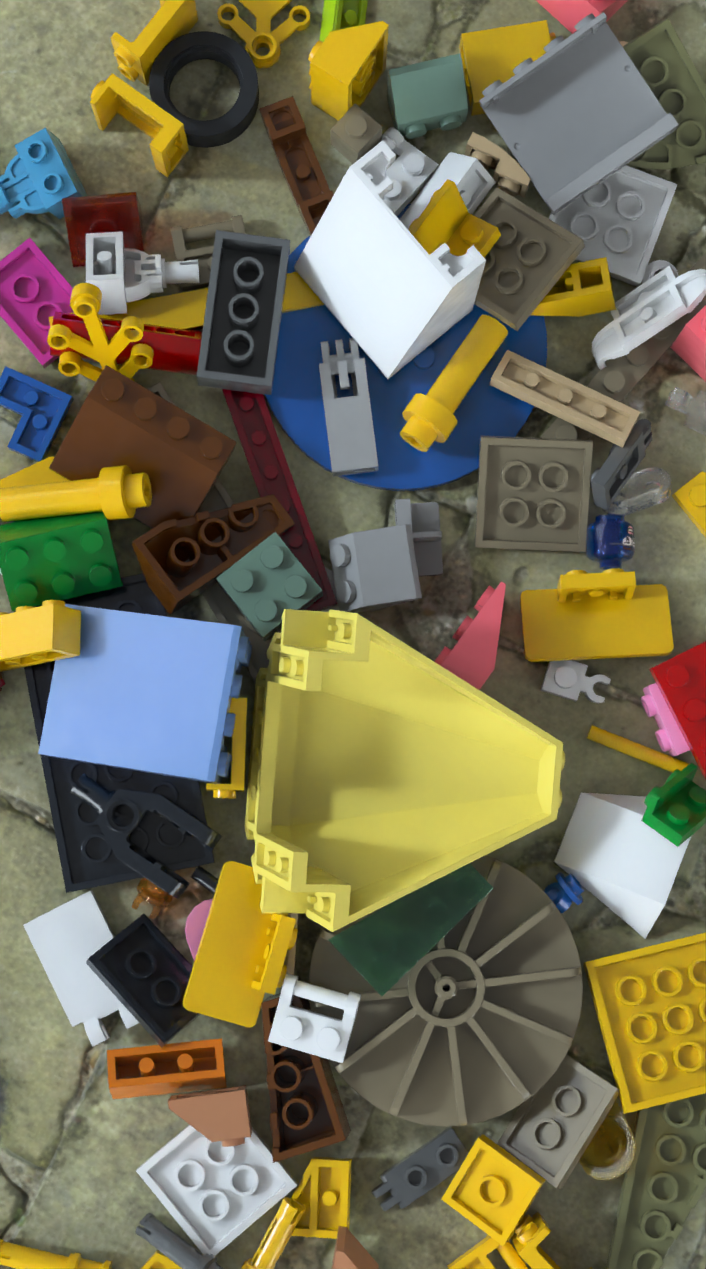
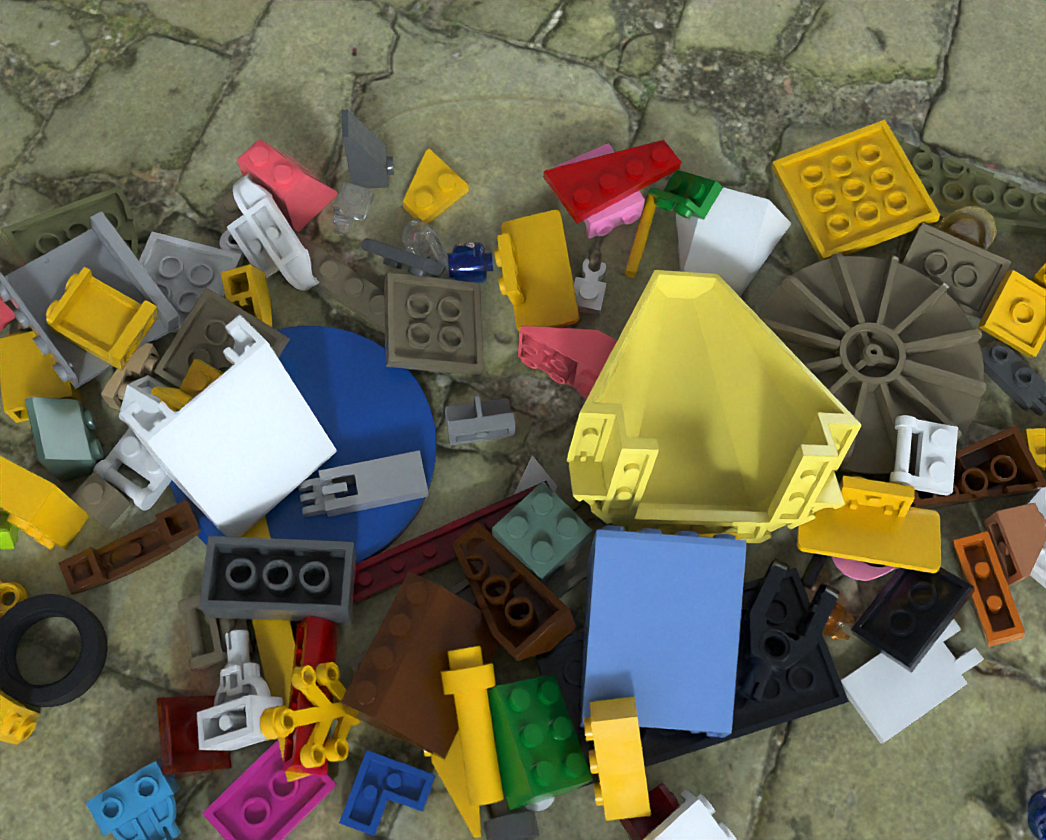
camera: 95 degrees left, 15 degrees down
(167, 132) = (57, 739): yellow panel -> none
(375, 569) = (514, 445): light grey slope -> none
(404, 931) = (849, 384): clear green wing -> none
(431, 415) = (369, 408): yellow piece -> none
(554, 129) = (100, 319): none -> yellow panel
(564, 398) = (347, 302): tan plate -> none
(565, 891) = (764, 278): blue plate -> none

